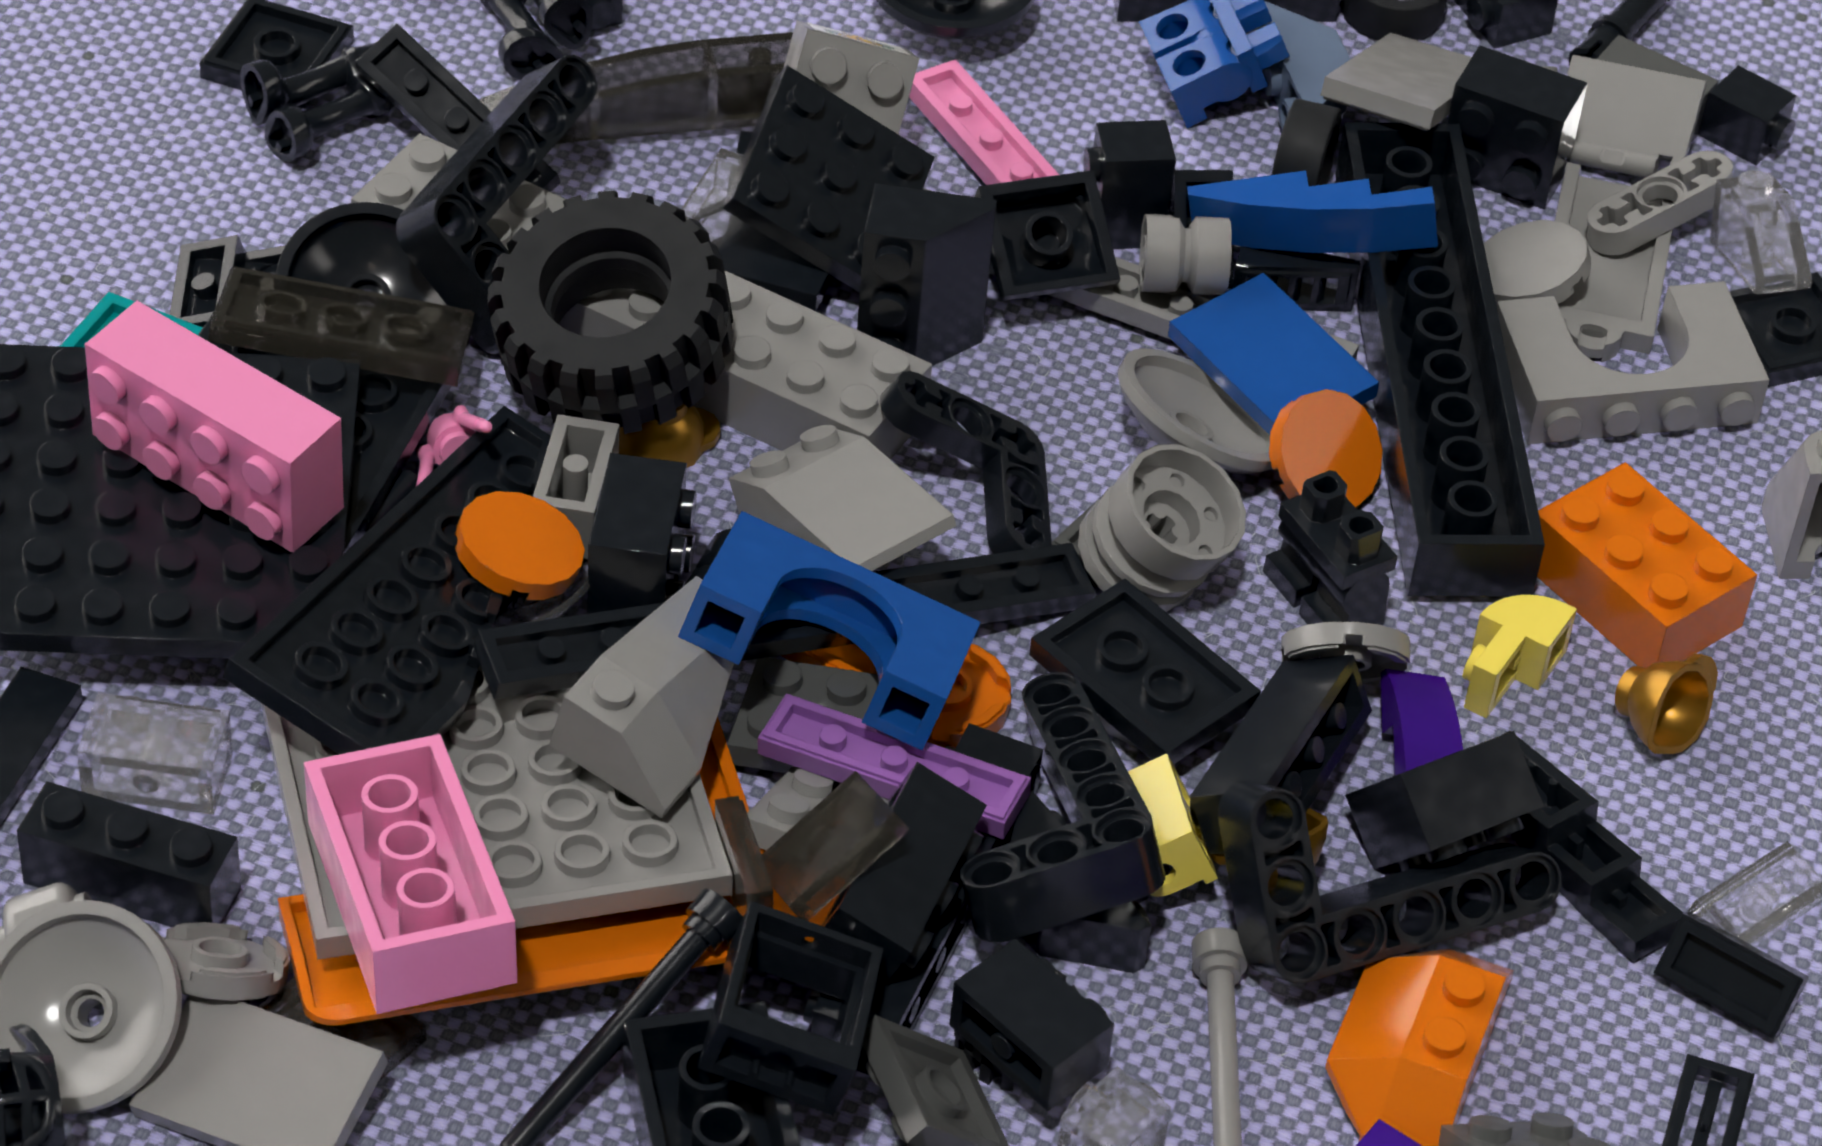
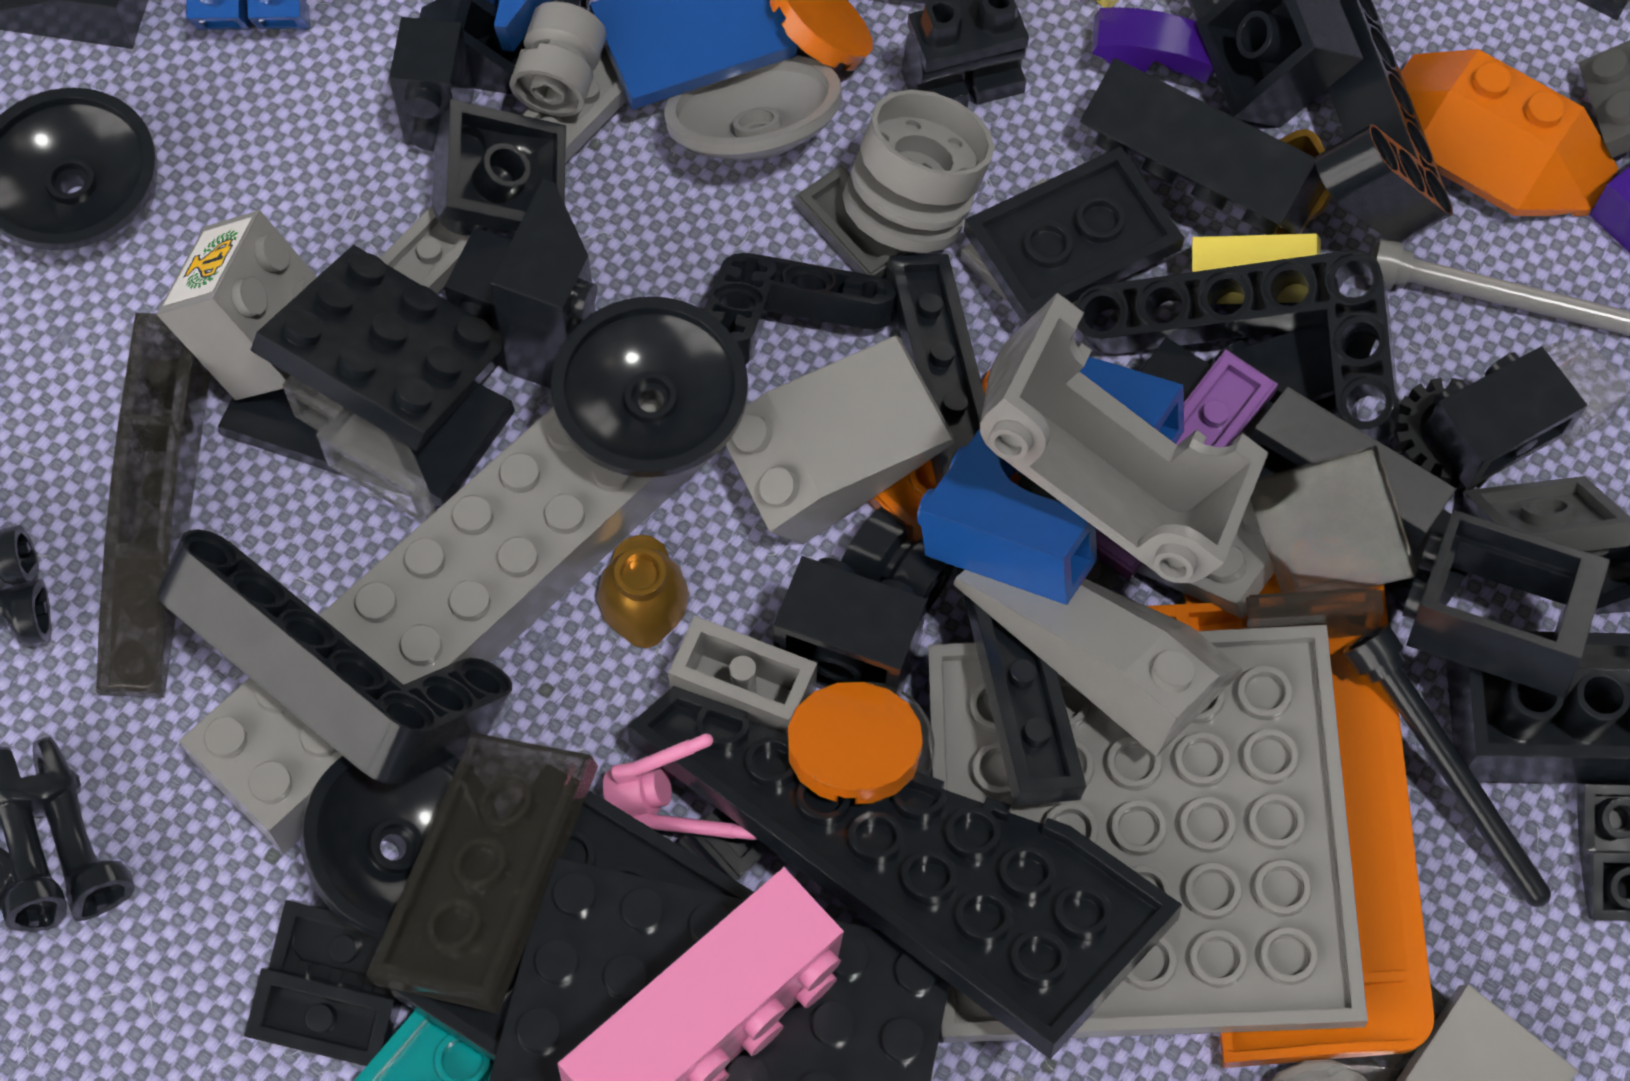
camera: 75 degrees left, 20 degrees up
(410, 873) = (1348, 909): bright pink brick -> none
(431, 94) = (125, 713): black plate -> none
(598, 249) = (586, 500): black tyre -> none
(822, 327) = (644, 354): none -> black dish
(824, 600) = (1104, 462): none -> light grey windscreen
(976, 126) = (316, 193): bright pink plate -> none
(1372, 645) = (1079, 69): light grey tile -> none

